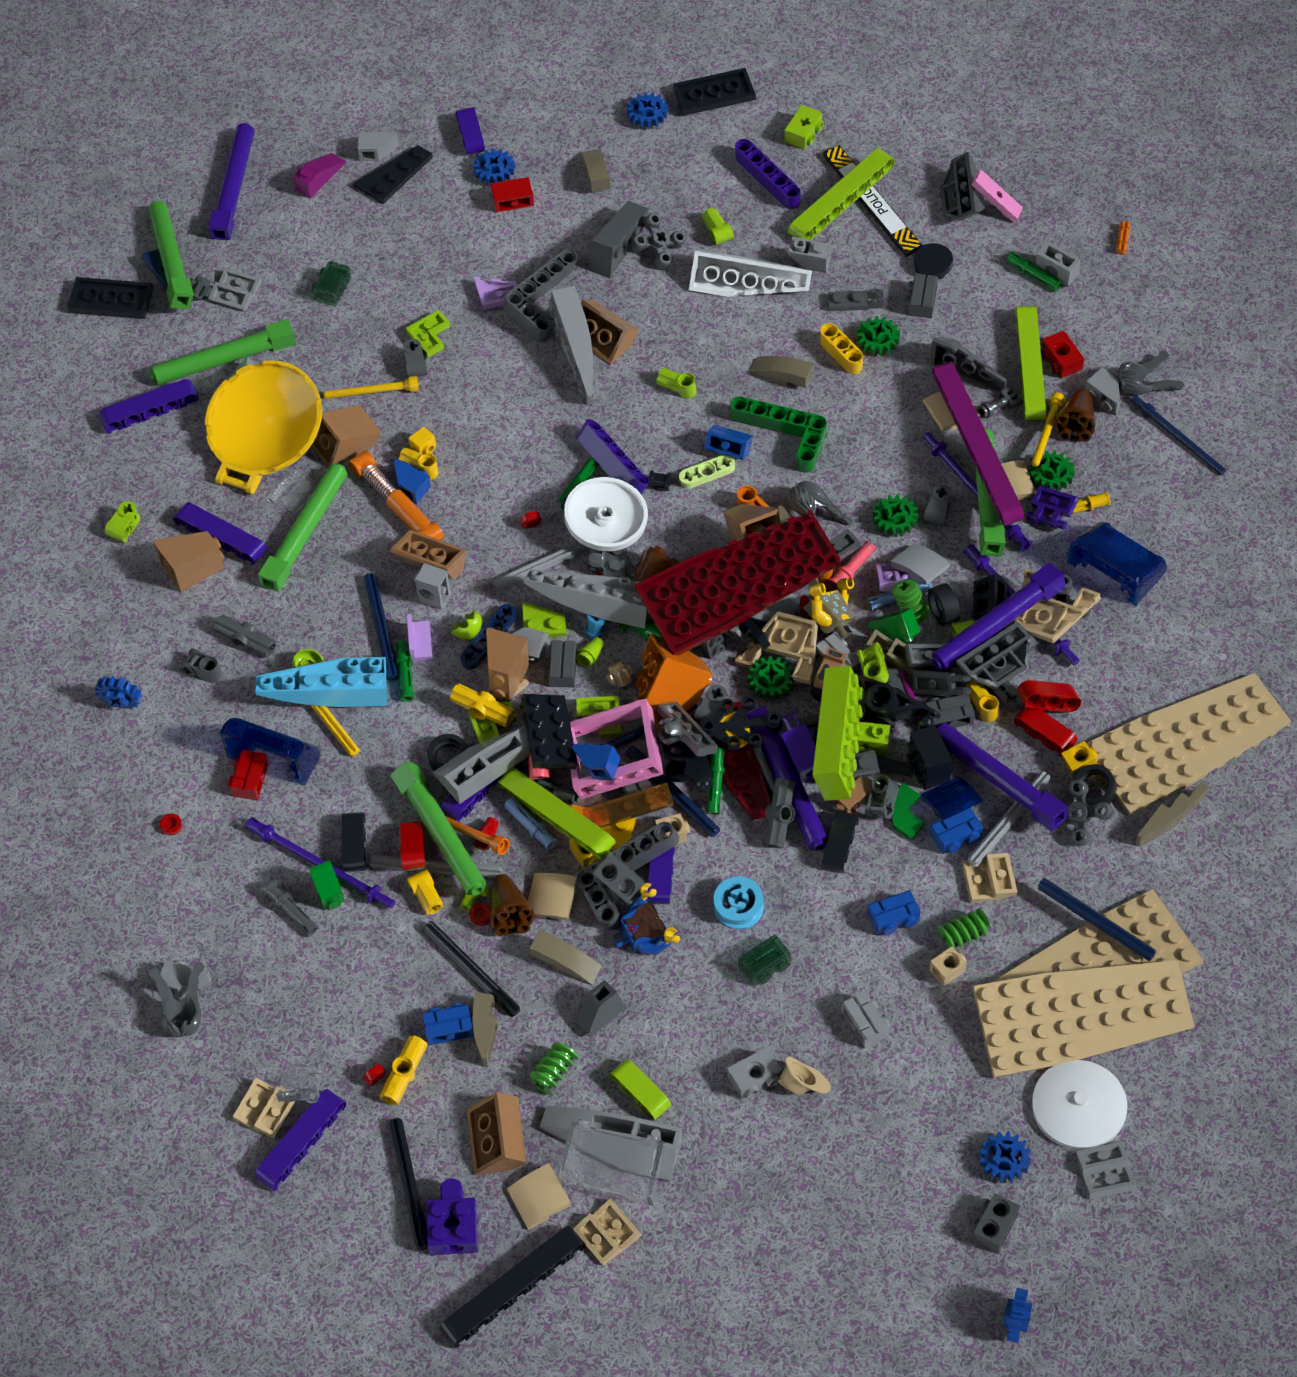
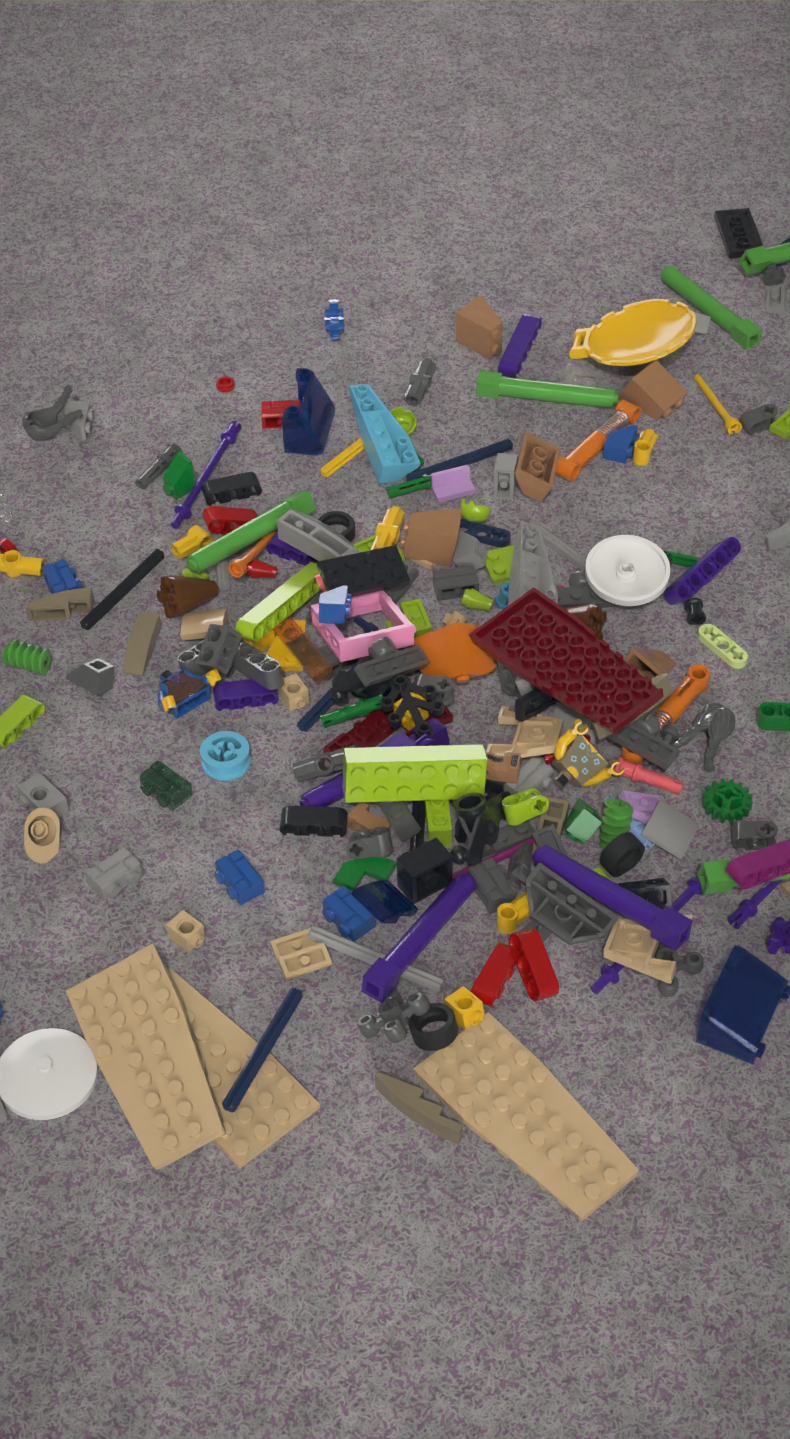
camera: 75 degrees right, 10 degrees down
(123, 522) = (508, 290): lime piece -> none
(148, 405) = (634, 276): dark purple beam -> none
(200, 666) = (381, 365): dark grey piece -> none
(422, 441) = (667, 443): yellow plate -> none
(530, 519) = (610, 529): red tile -> none
(728, 442) = (761, 650): blue brick -> none
(760, 678) = (488, 731): green gear -> none
(964, 928) = (229, 937): bright green piece -> none

